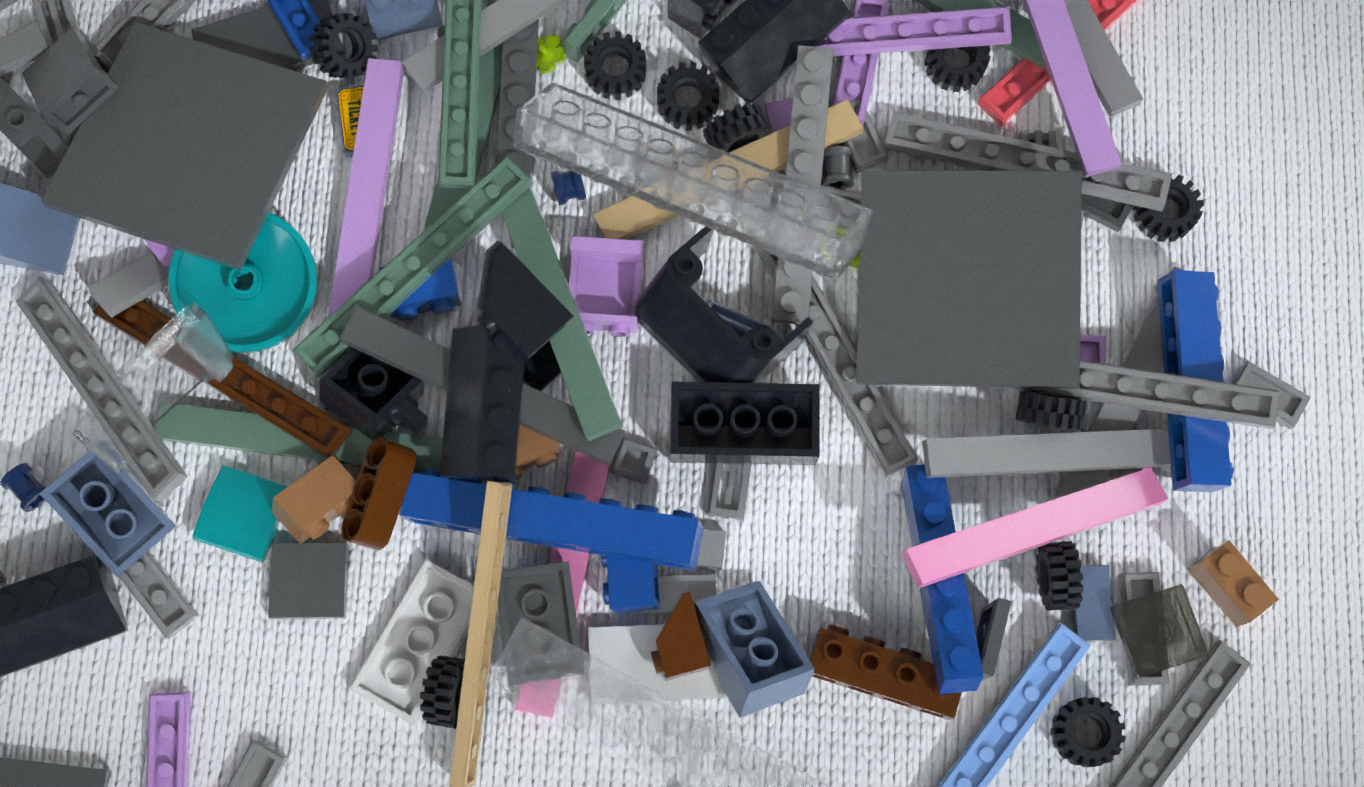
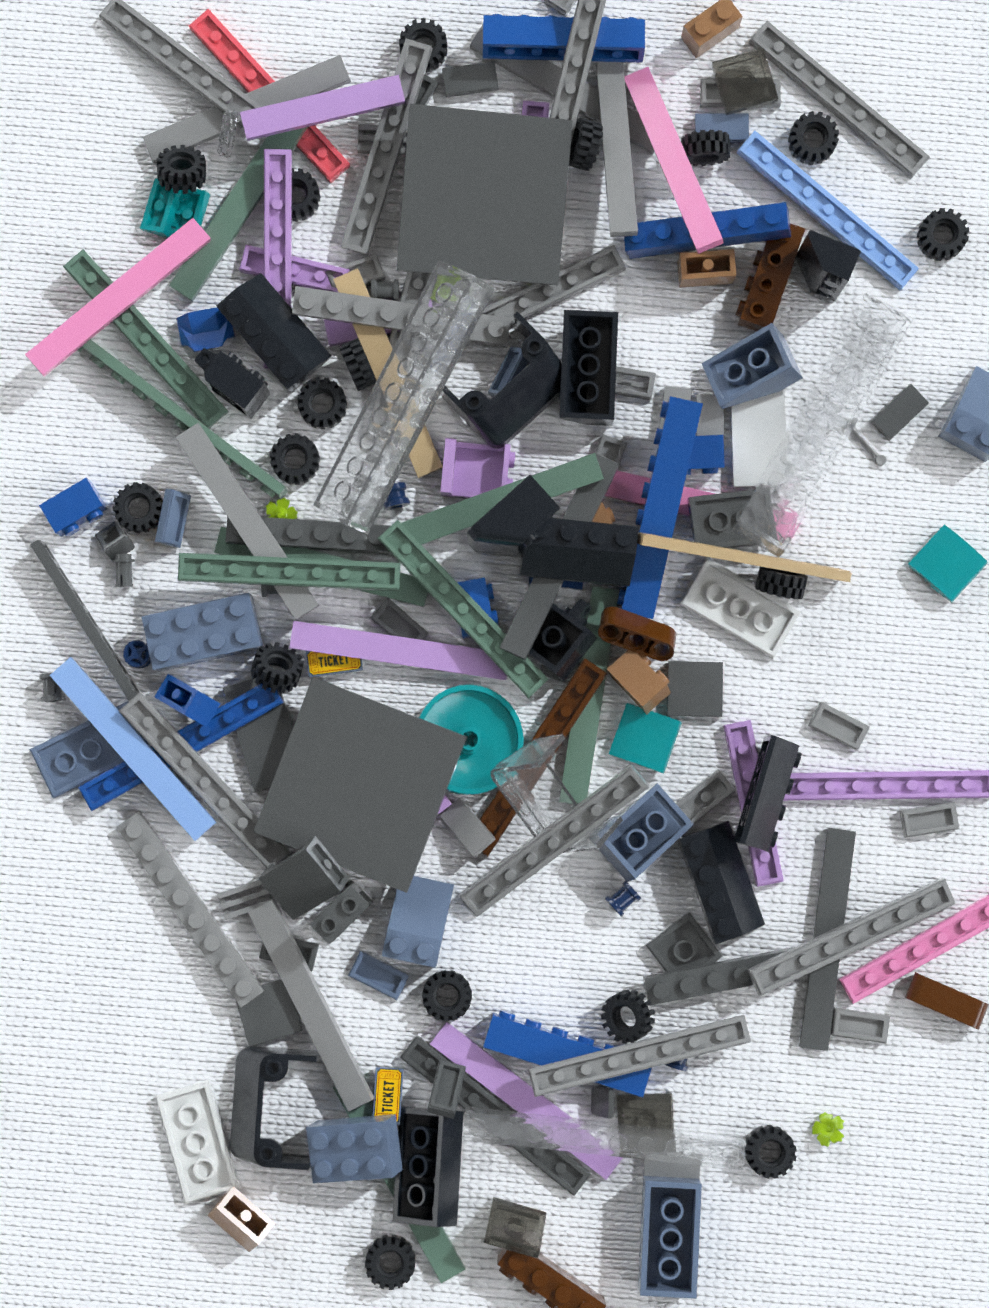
camera: 85 degrees left, 10 degrees up
(148, 664) = (743, 759): none -> lavender tile
(149, 675) = (766, 793): none -> black slope
(405, 197) = (397, 622): none -> dark grey tile
(681, 643) = (748, 418): reddish brown slope -> none
(889, 581) = (706, 268): none -> medium nougat brick
(899, 749) = (826, 265): none -> black slope
(991, 633) = (745, 196): dark grey tile -> none
(1128, 269) = (470, 79): none -> dark grey tile

